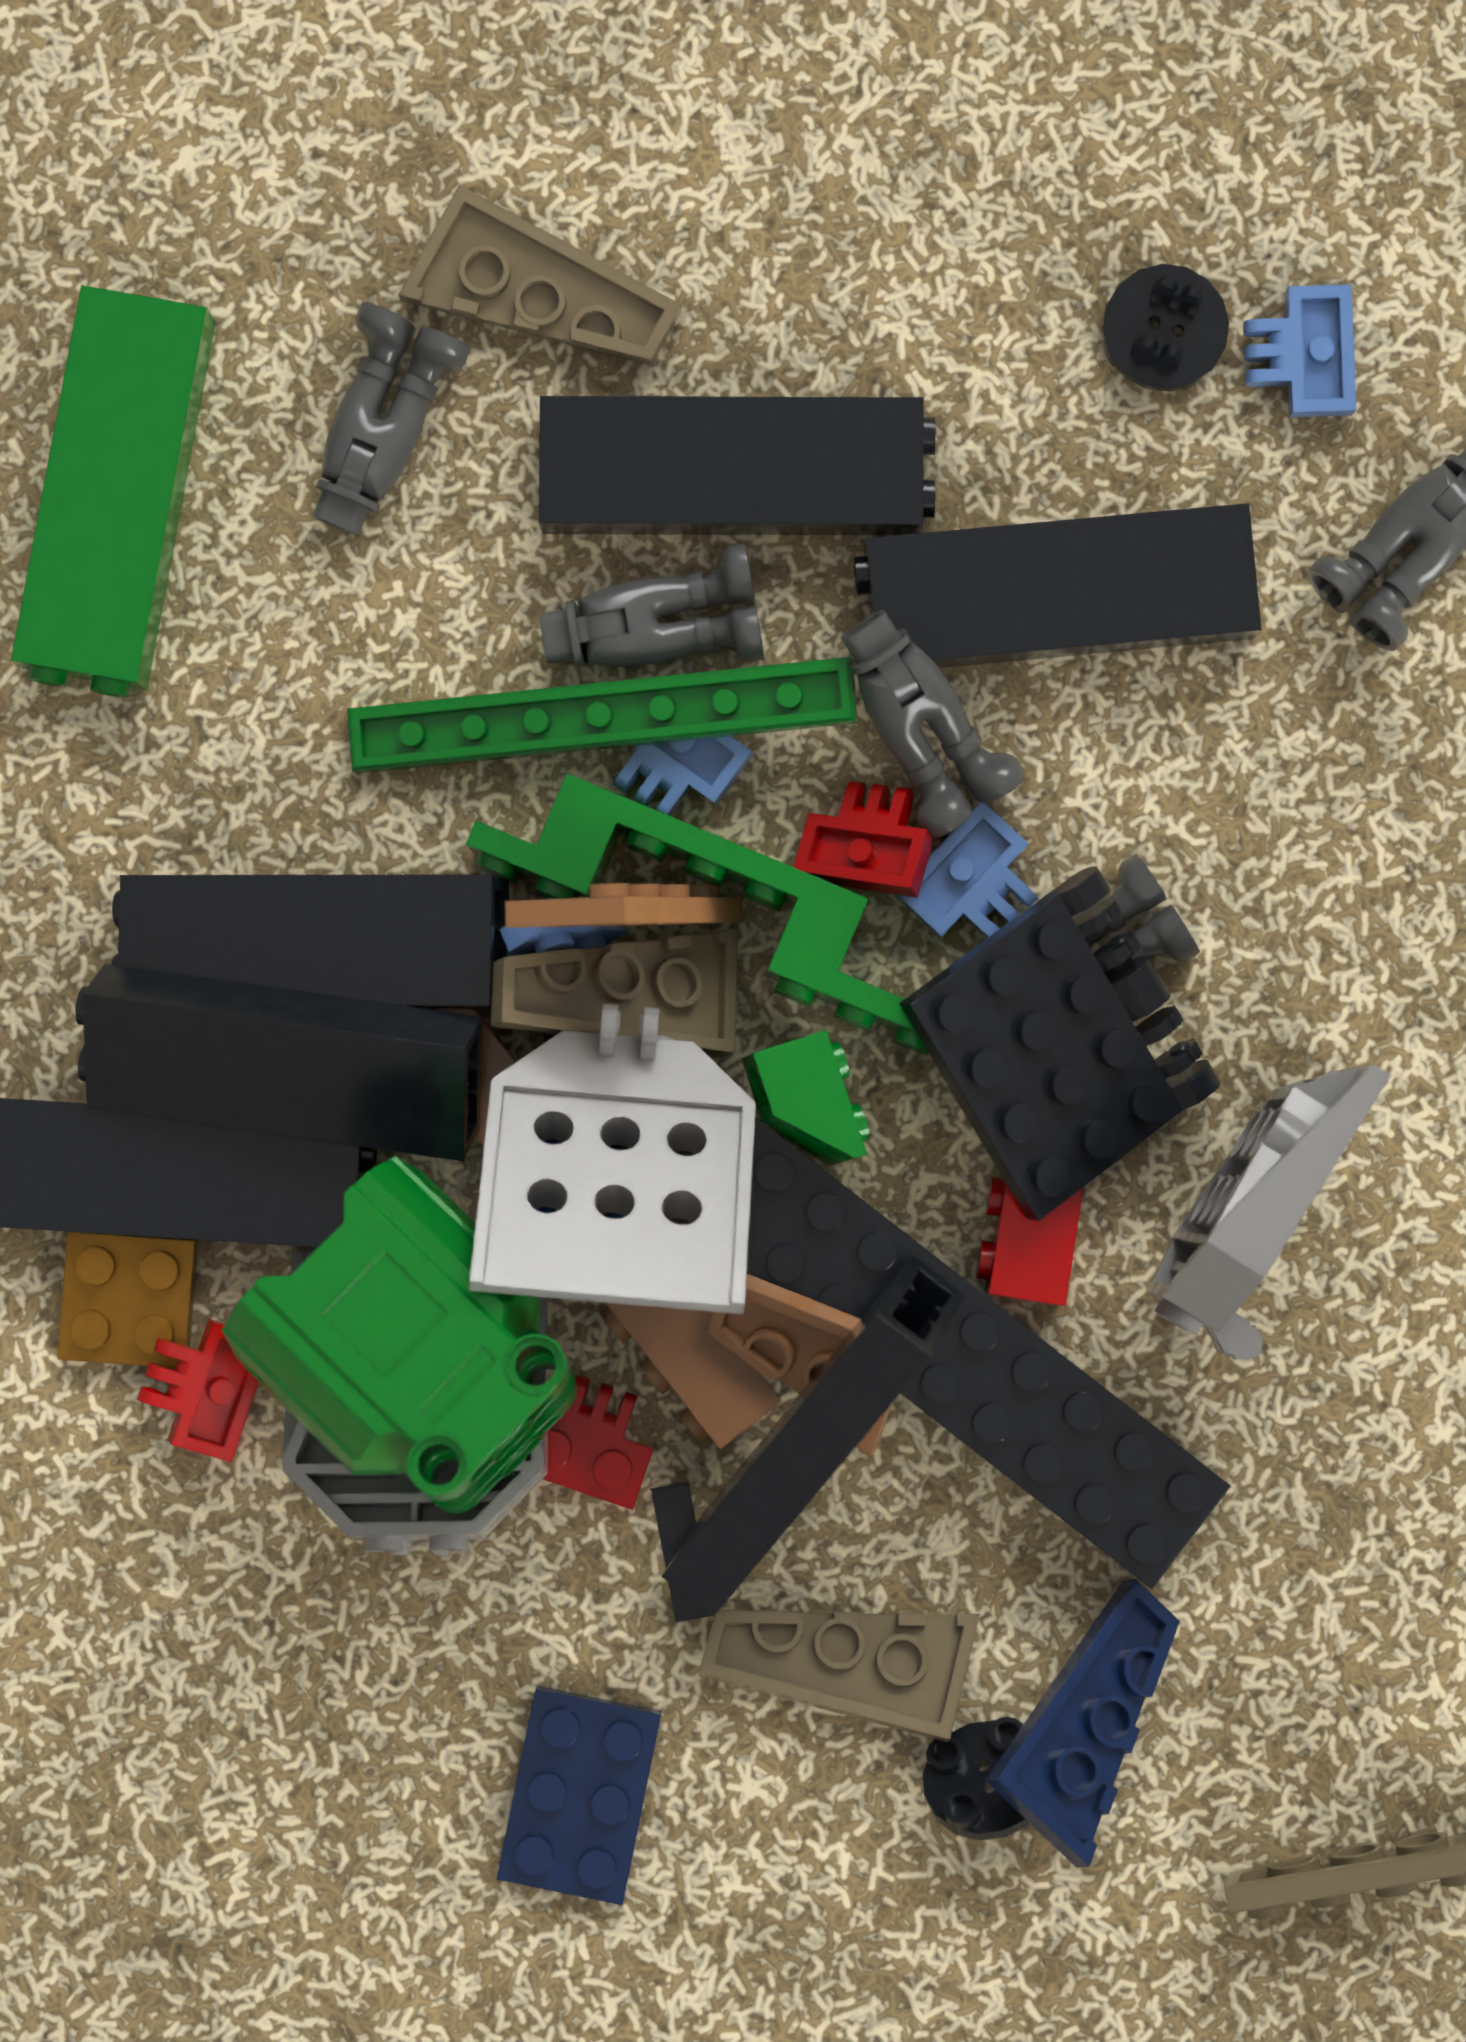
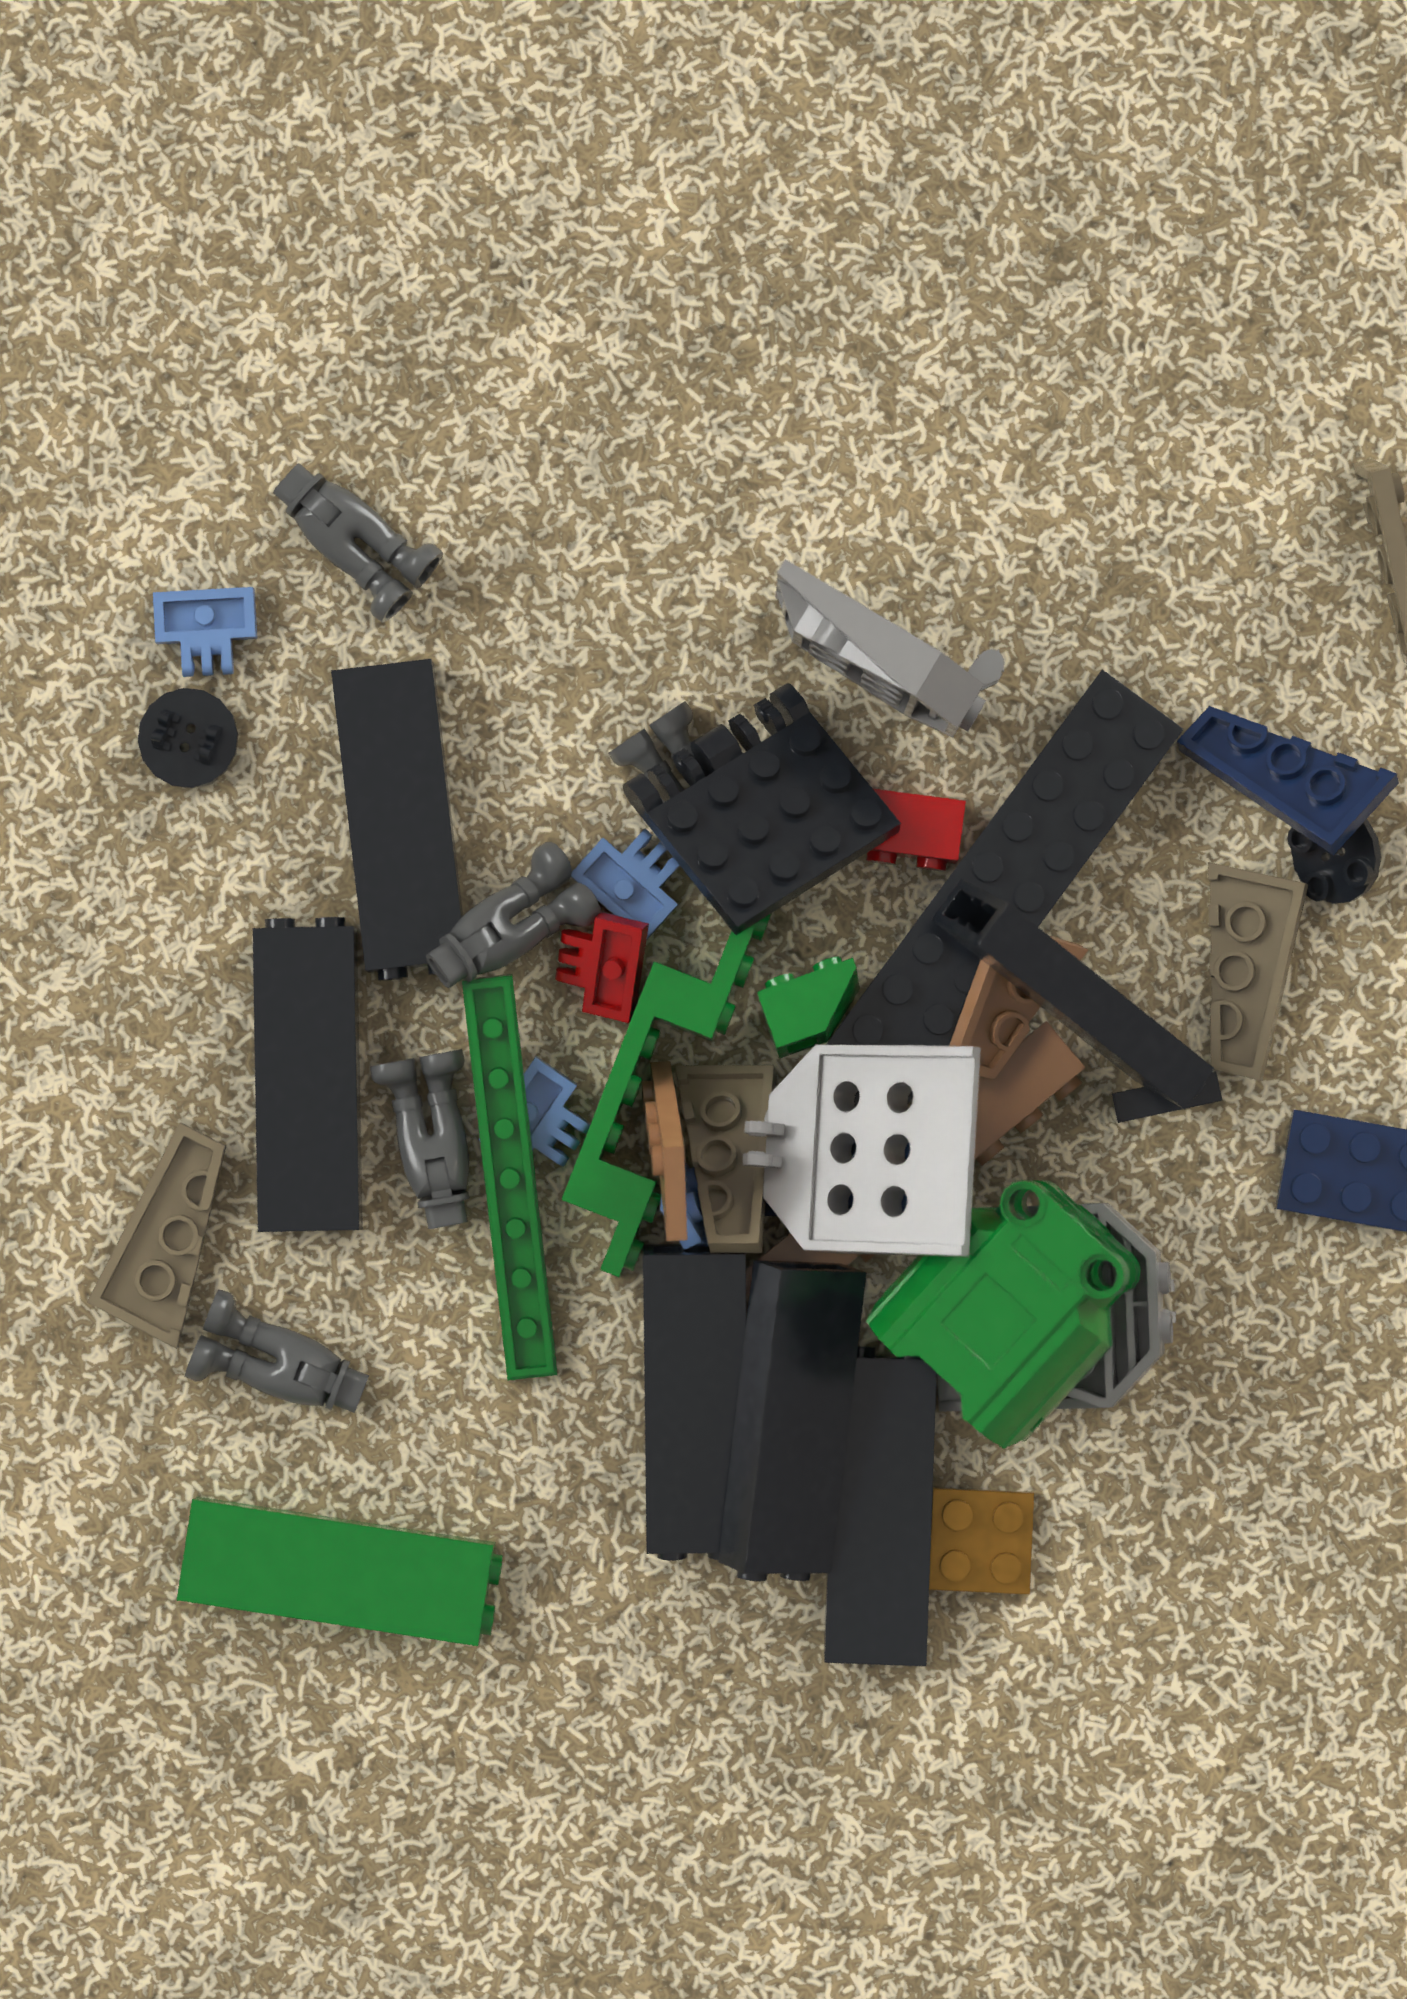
camera: 90 degrees left, 0 degrees up
(205, 1391) = (1050, 1473): red hinge -> none
(591, 1452) = (1092, 1168): red hinge -> none

